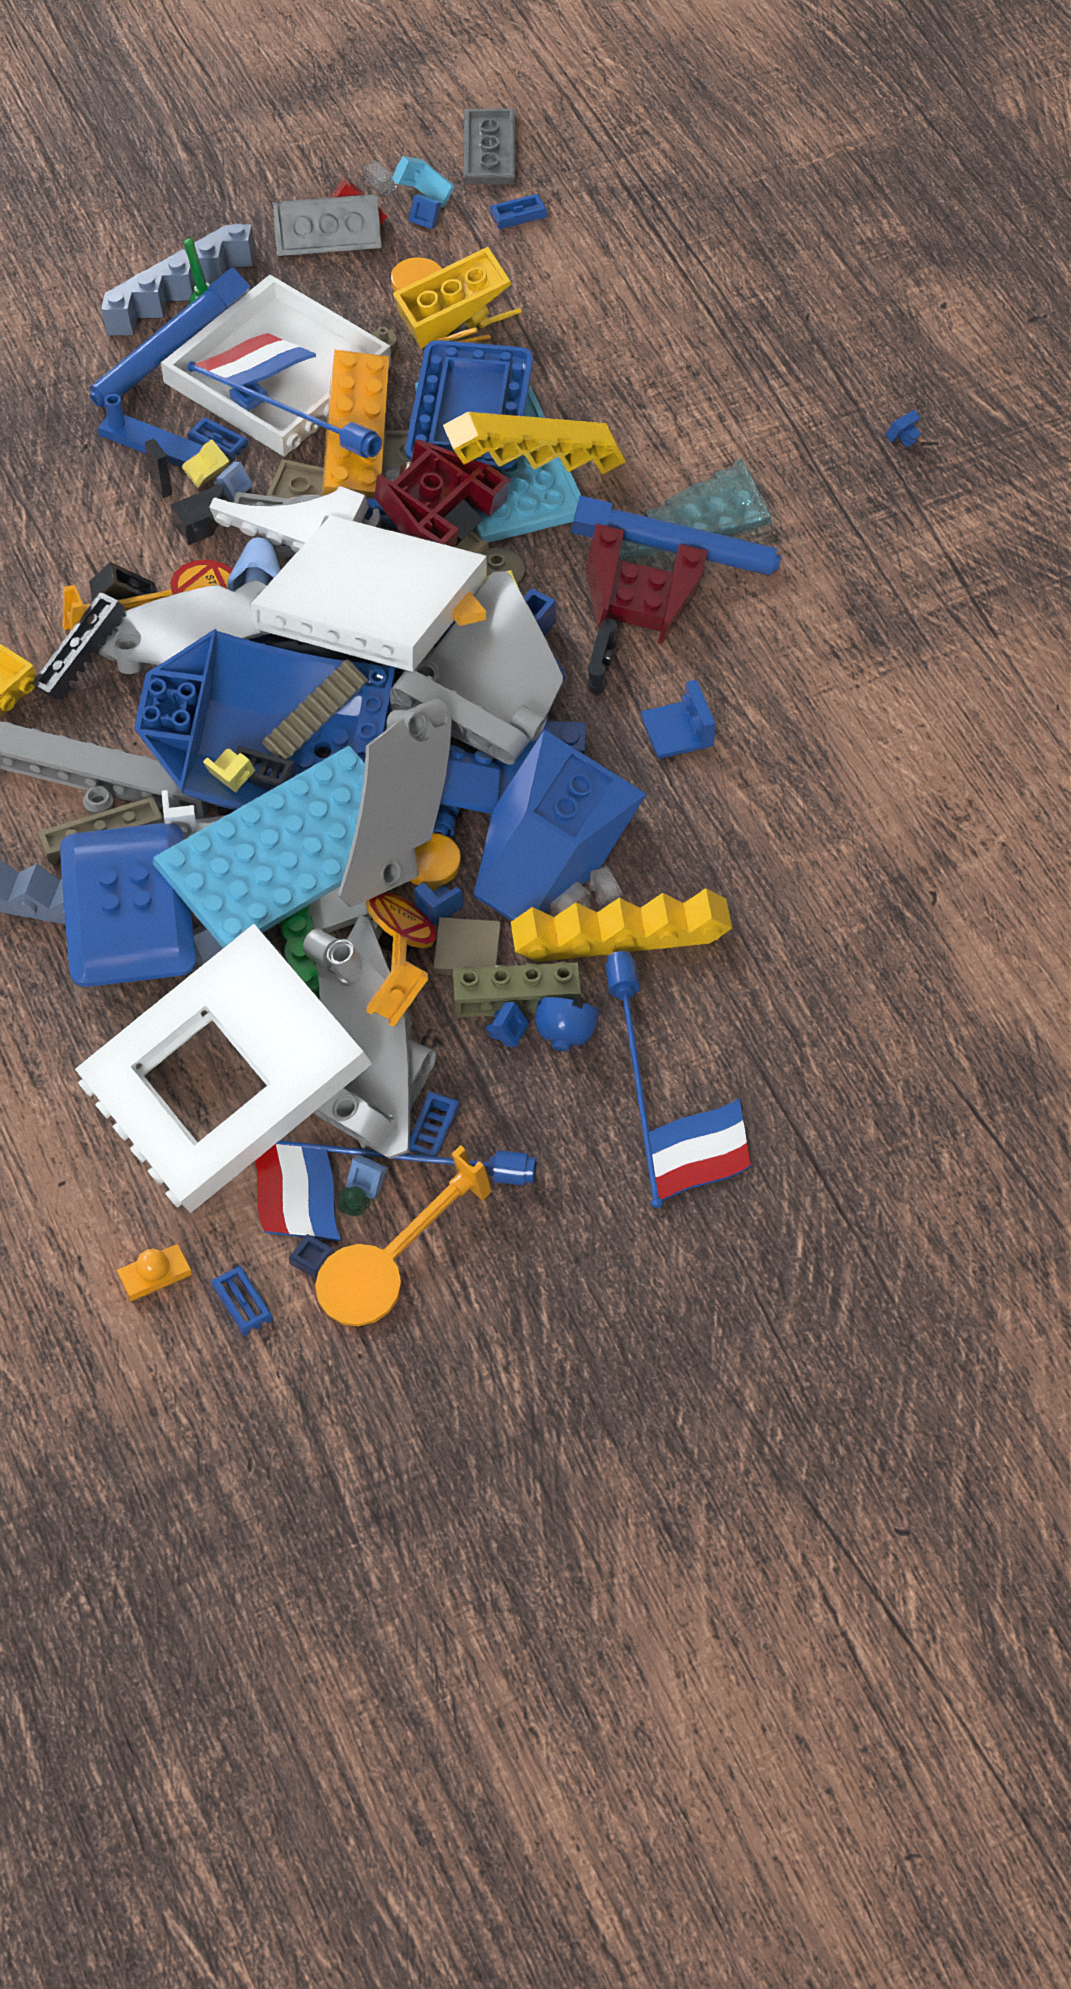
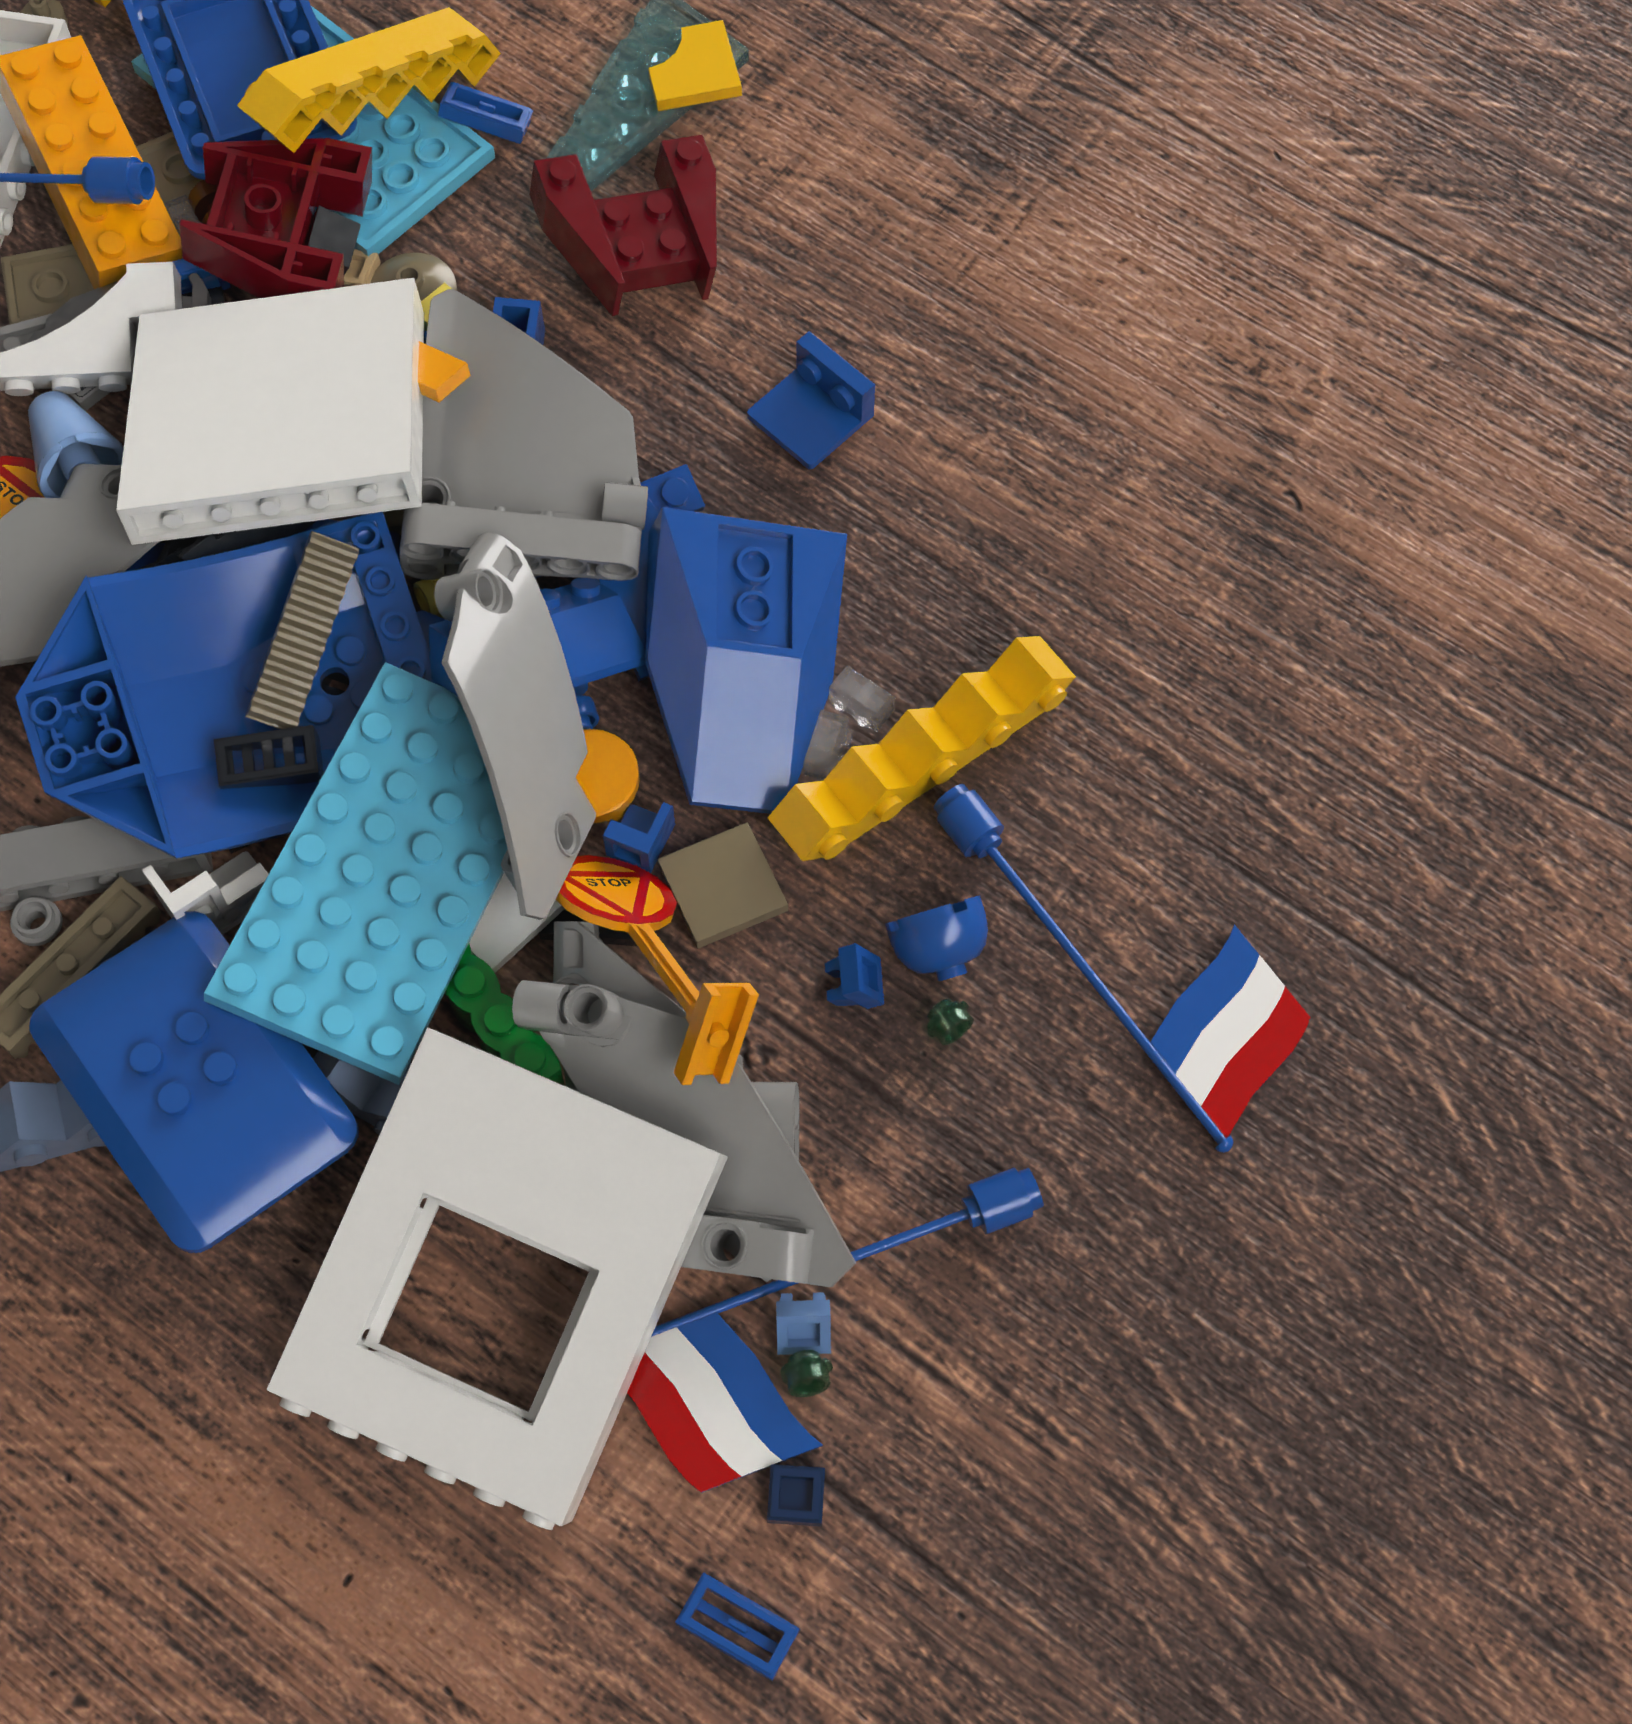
camera: 30 degrees left, 10 degrees up
(153, 1271) = (578, 1654): light orange tile -> none
(230, 769) = (225, 782): light yellow panel -> none
(363, 1281) = (894, 1497): light orange piece -> none
(439, 1102) = (839, 1149): blue slope -> none
(488, 988) = (840, 912): olive brick -> none
(544, 1070) = (949, 1021): none -> clear green plate
(592, 486) = (485, 112): none -> blue tile
(602, 655) = (644, 354): black plate -> none
(668, 536) = (638, 136): blue brick -> none
(732, 516) = (698, 70): none -> yellow tile

